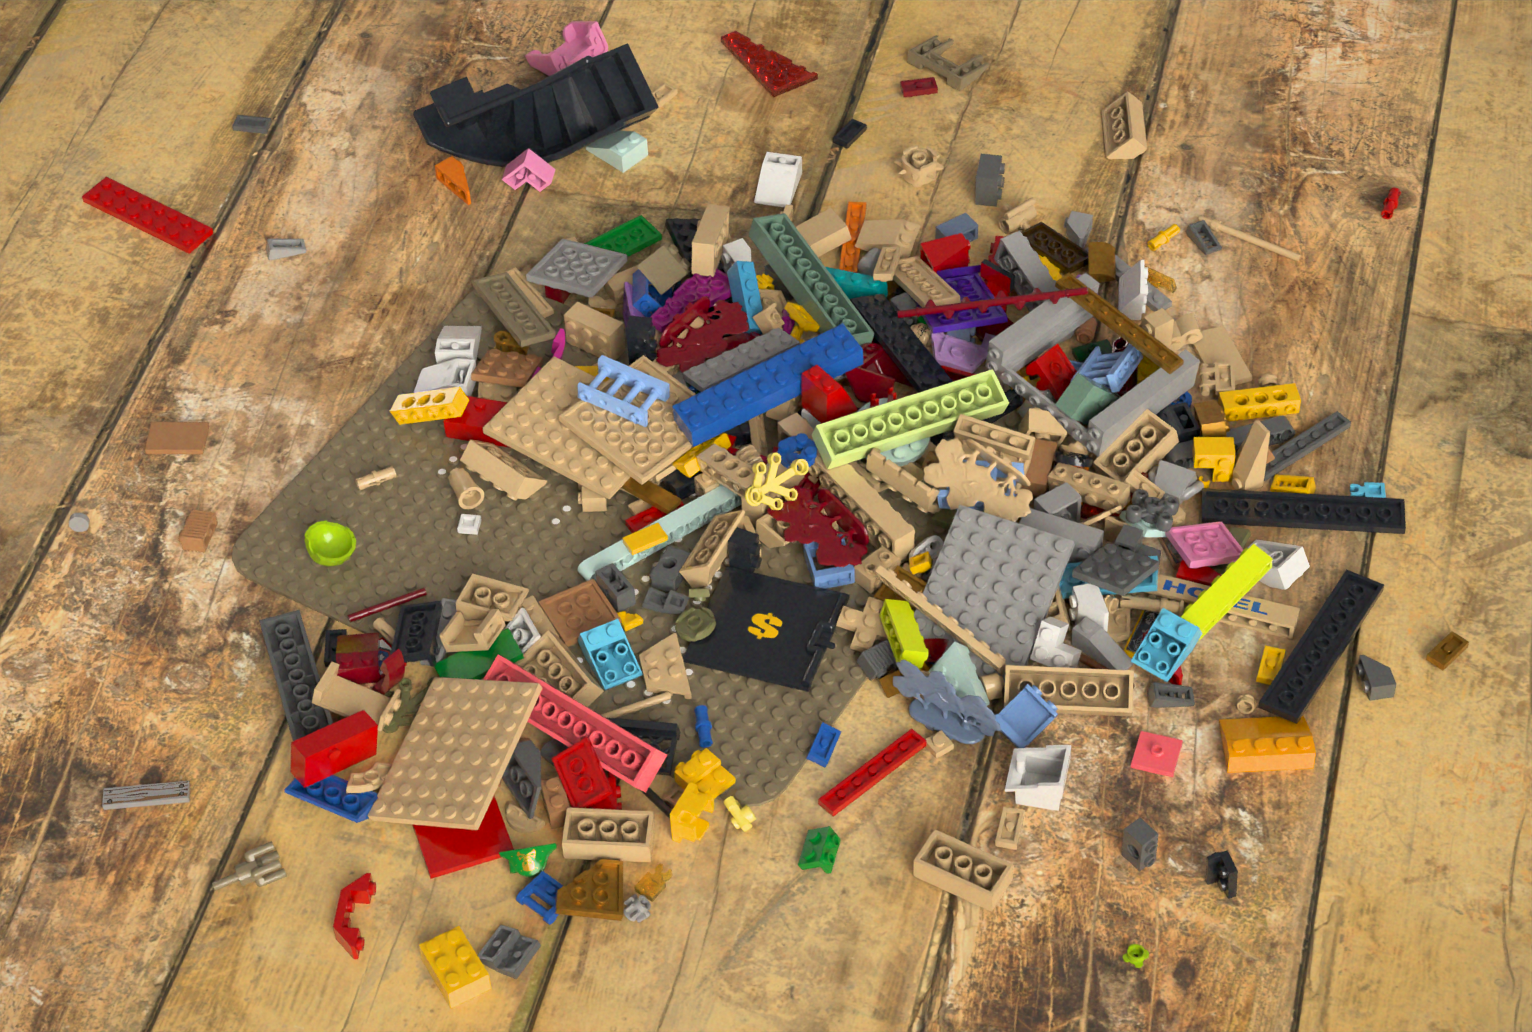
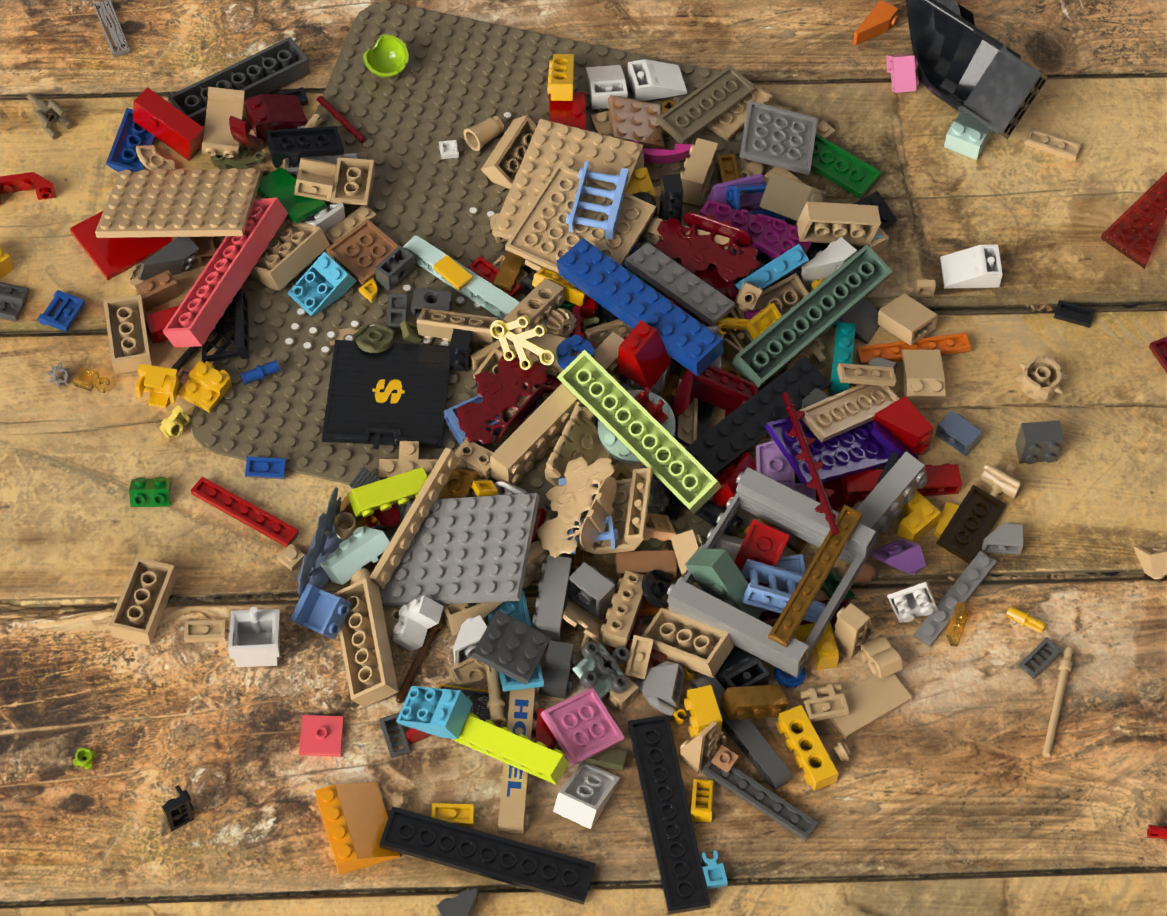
camera: 70 degrees right, 10 degrees up
(375, 478) = (480, 70): tan pin -> none
(528, 861) = (93, 287): green hat -> none
(581, 40) = (1085, 63): bright pink windscreen -> none
(582, 775) = (173, 294): red tile -> none
(594, 892) = (69, 341): pearl gold plate -> none
(638, 705) = (266, 313): tan piece -> none
(664, 668) = (321, 330): tan wing -> none
(1099, 645) = (437, 661): light grey slope -> none
(1102, 261) = (957, 566): pearl gold brick -> none
(1140, 844) = (197, 734): dark grey brick -> none

